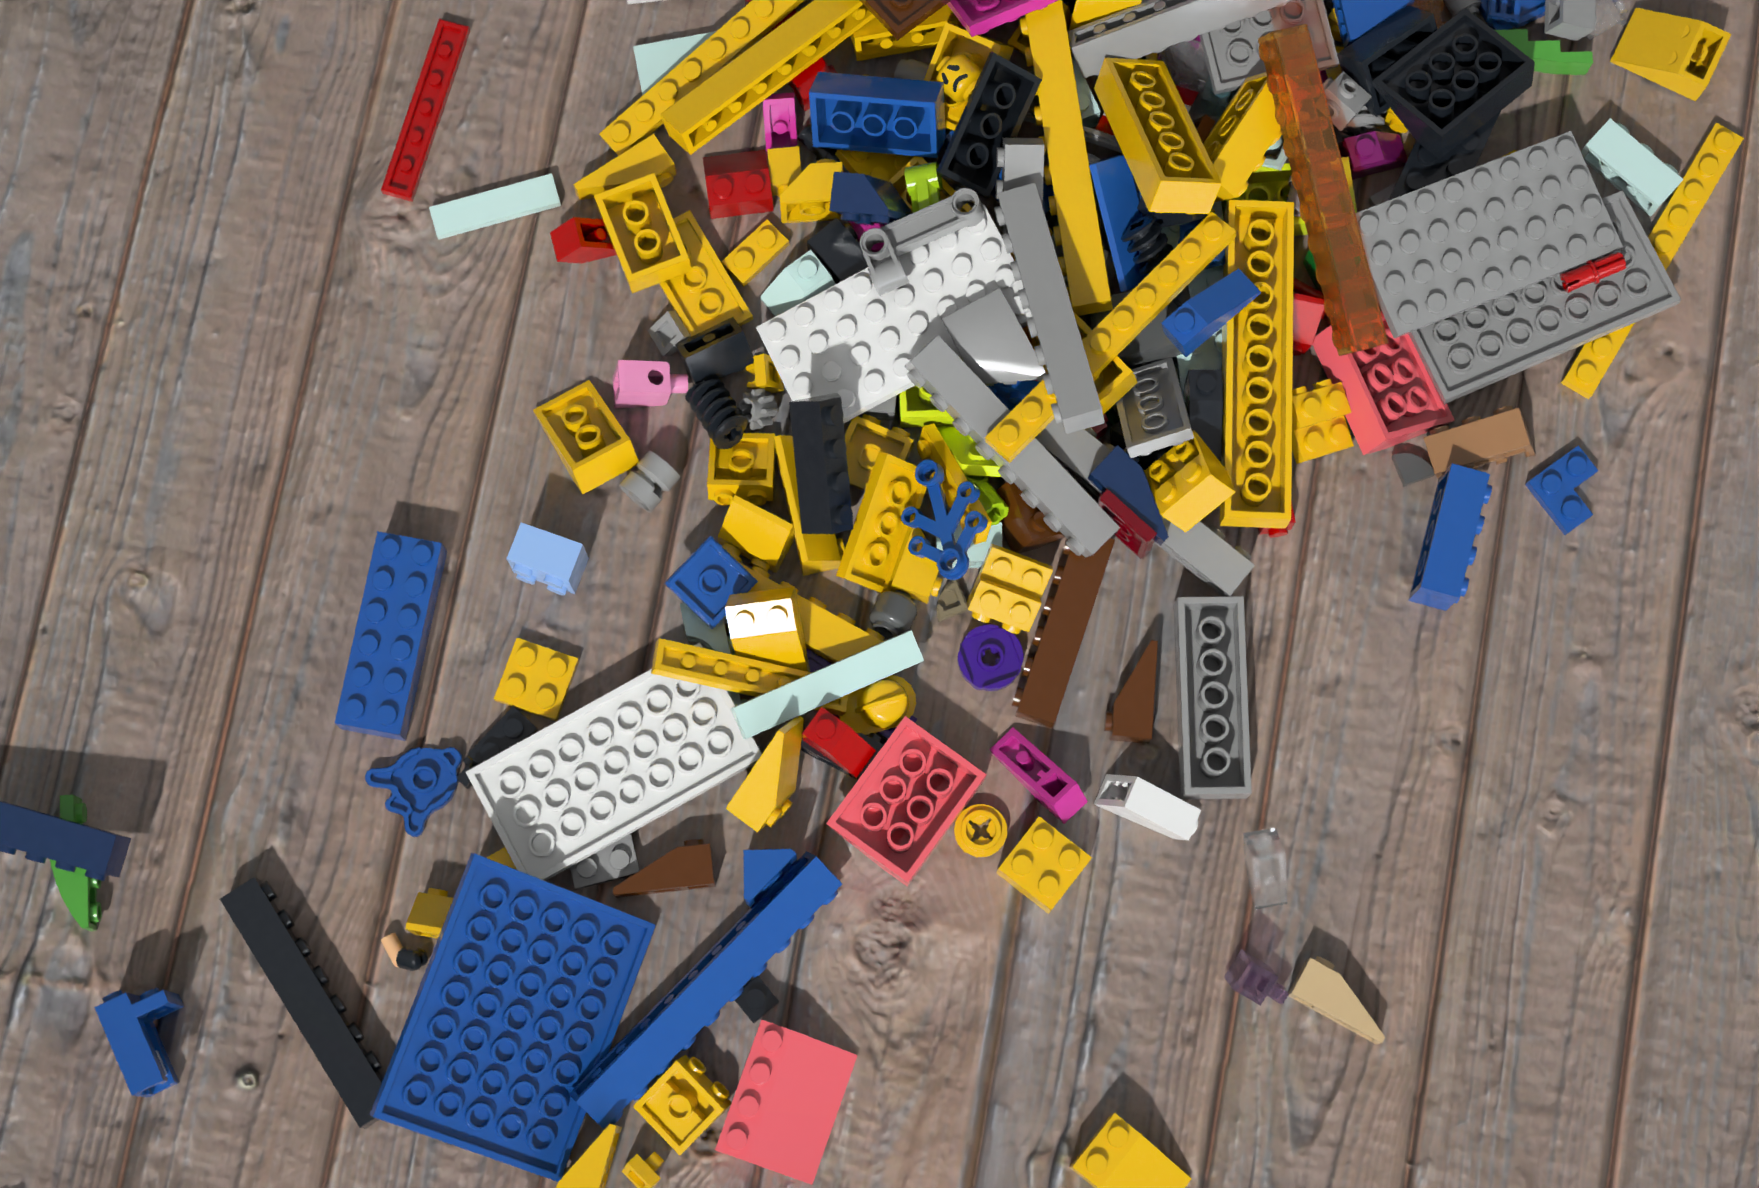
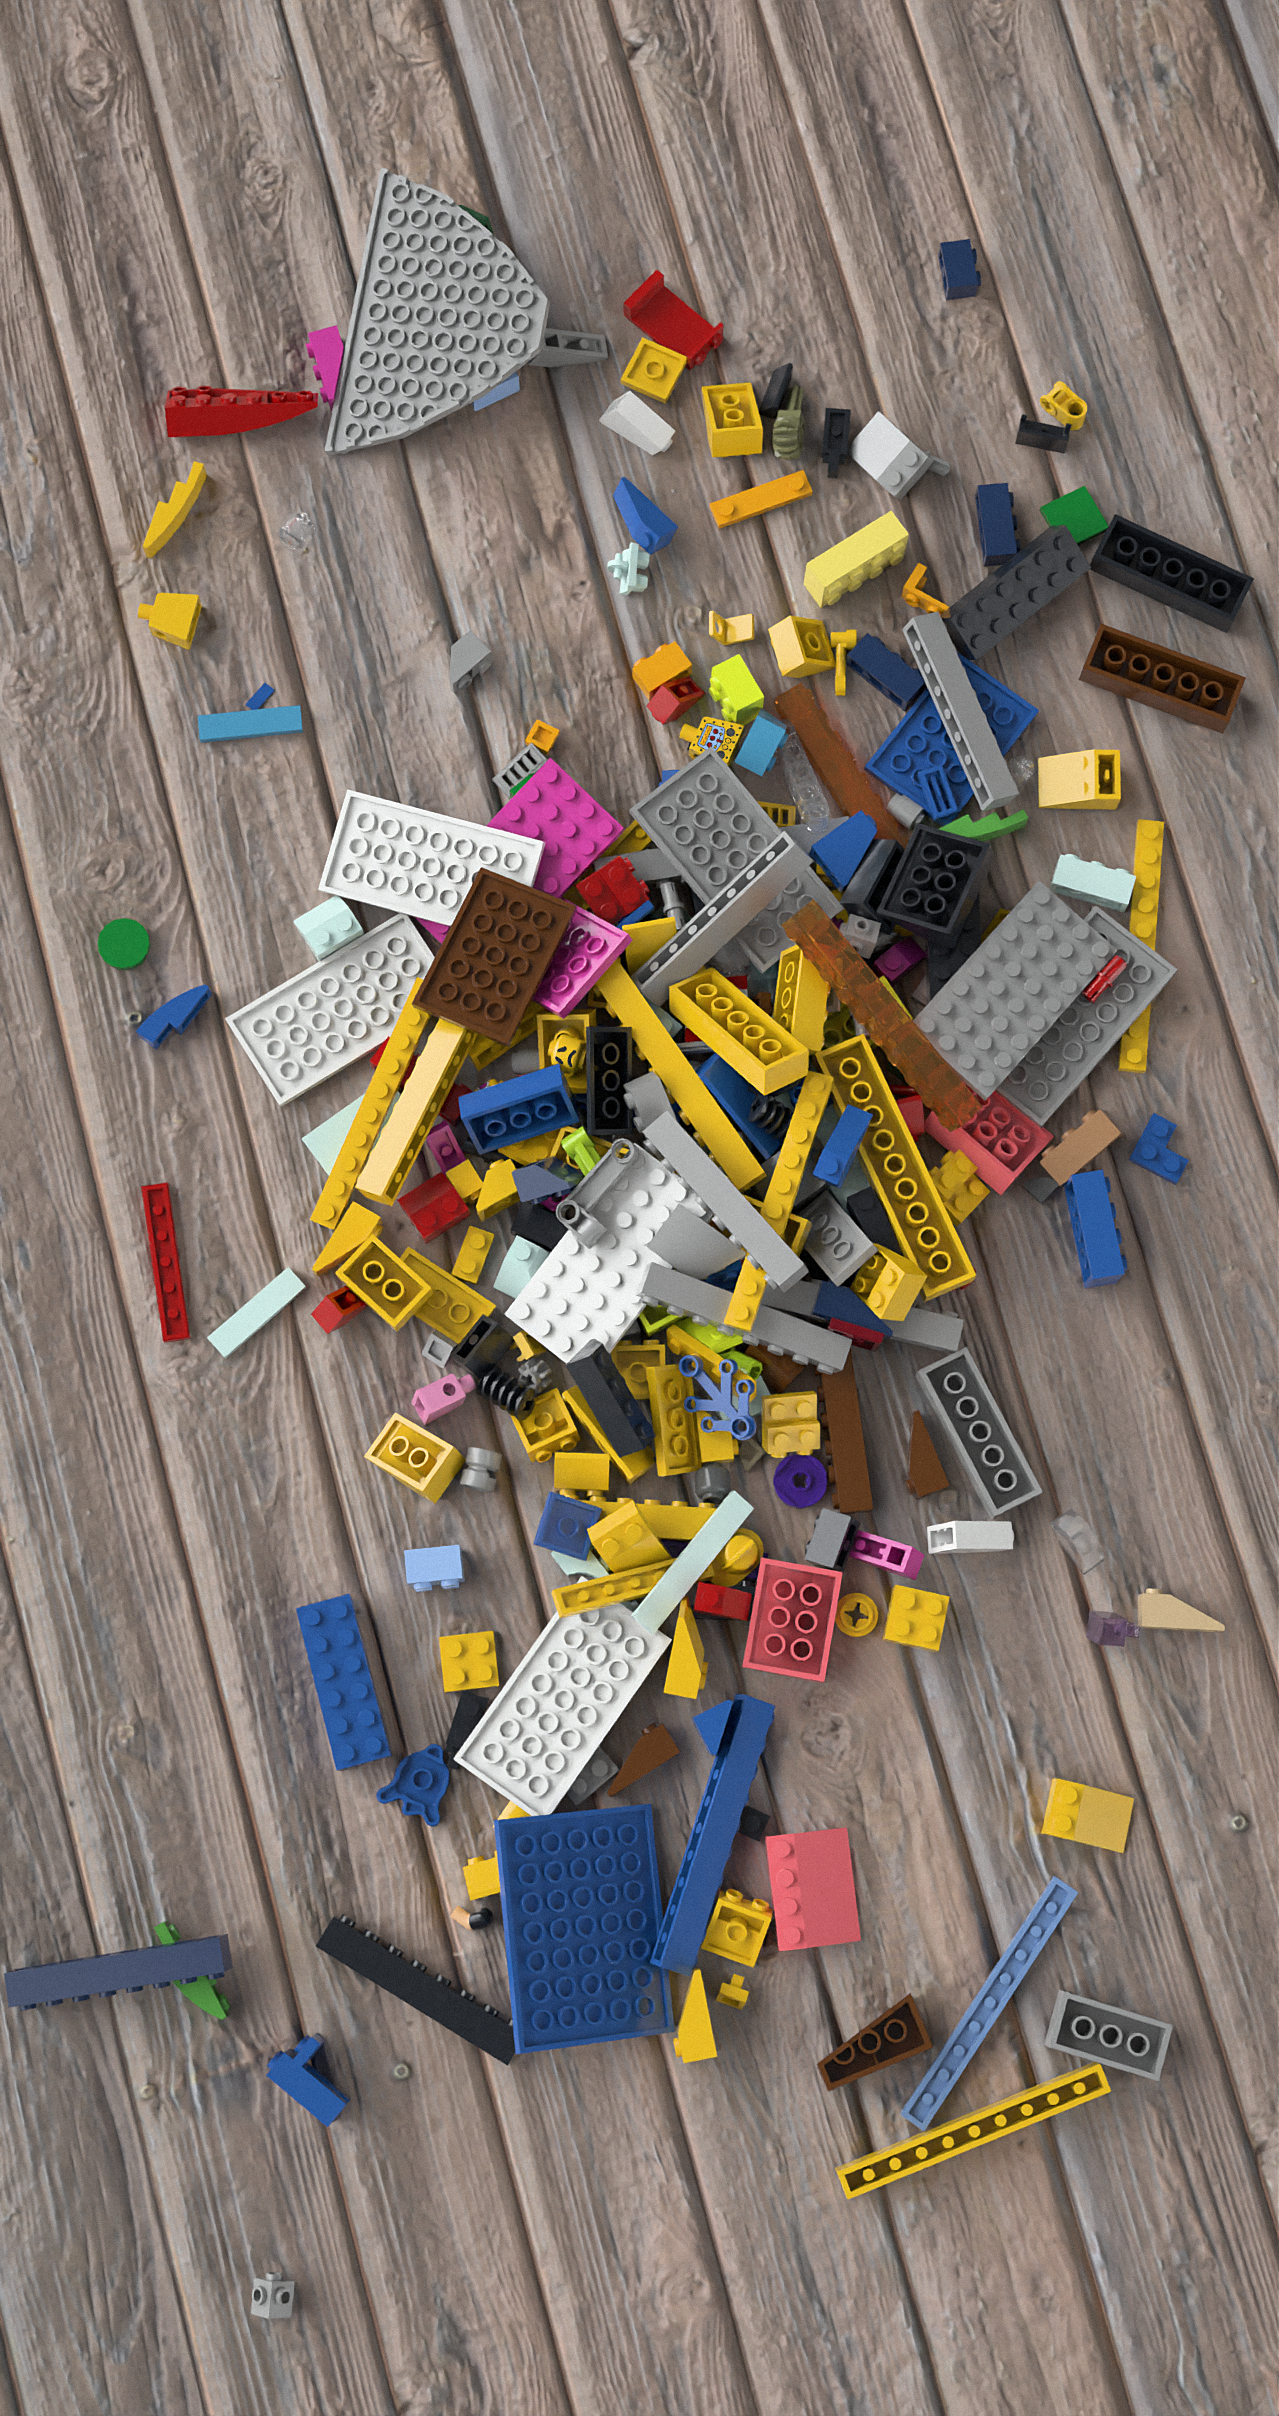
camera: 25 degrees left, 0 degrees up
(993, 736) = (831, 1540): none -> brick

